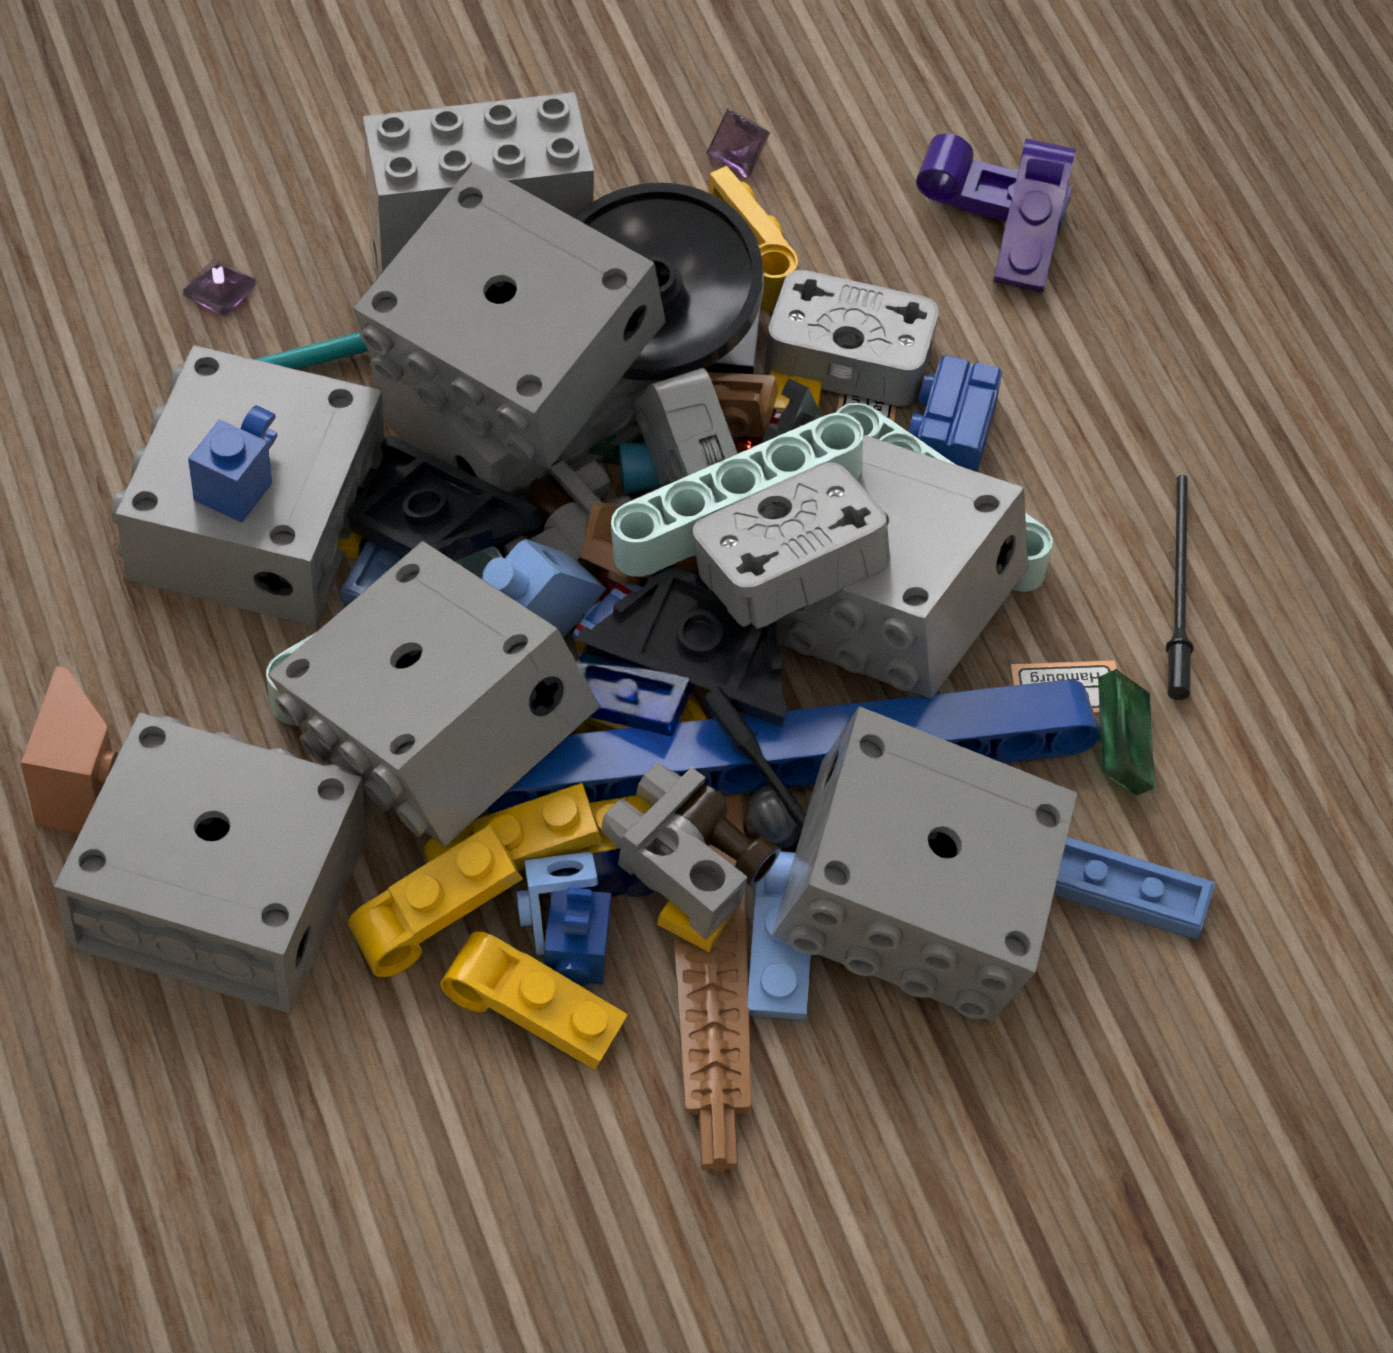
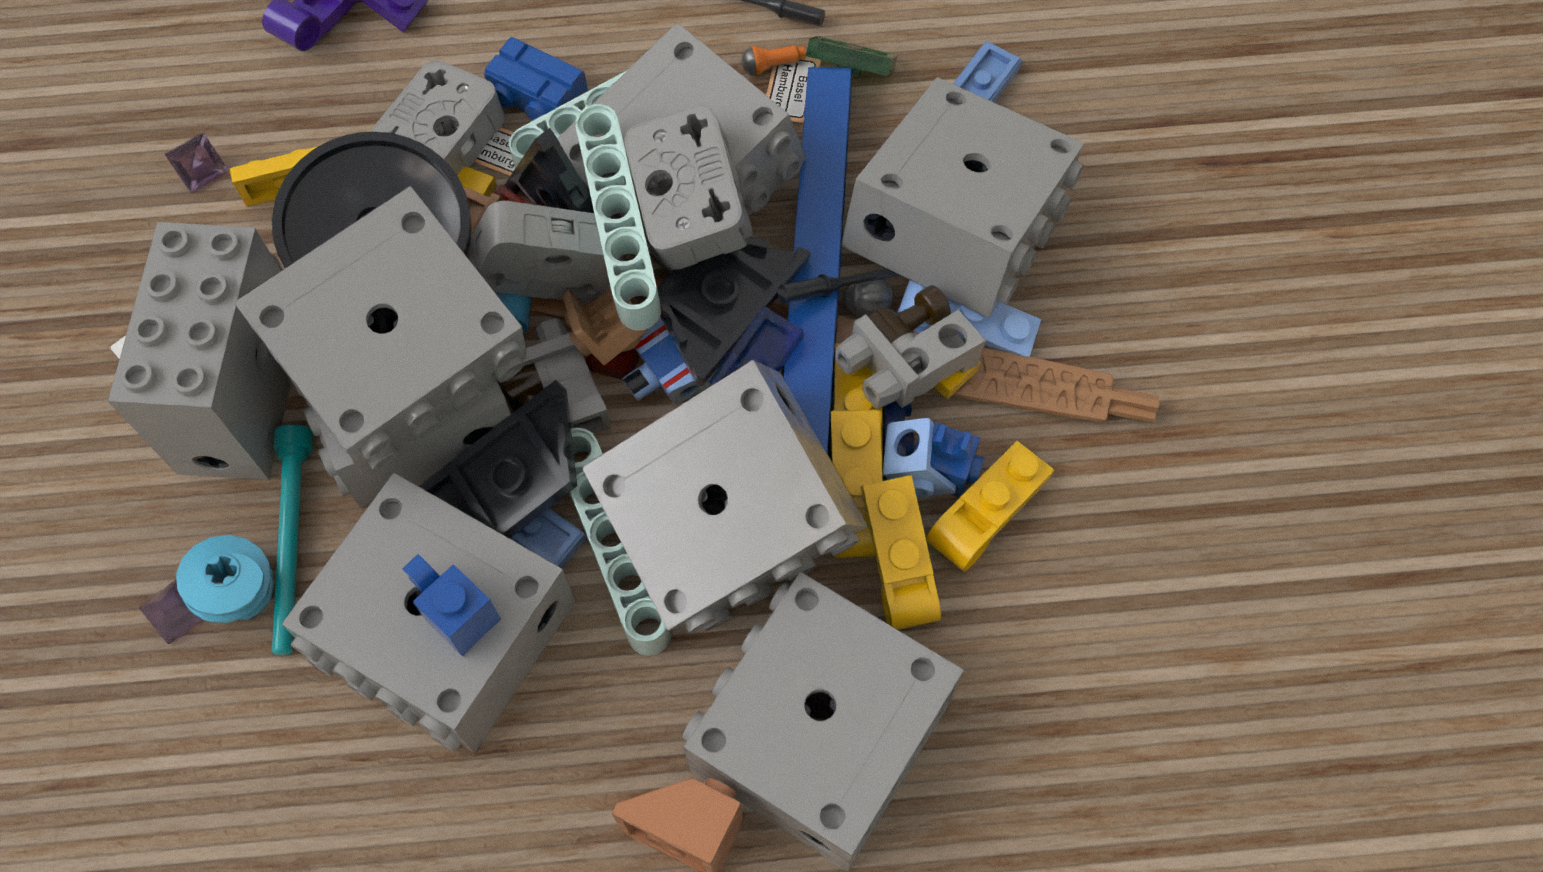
camera: 70 degrees left, 10 degrees up
(255, 311) = (239, 595): none -> medium azure piece
(545, 583) = (627, 400): light blue torso -> none
(1086, 638) = (758, 59): none -> orange piece

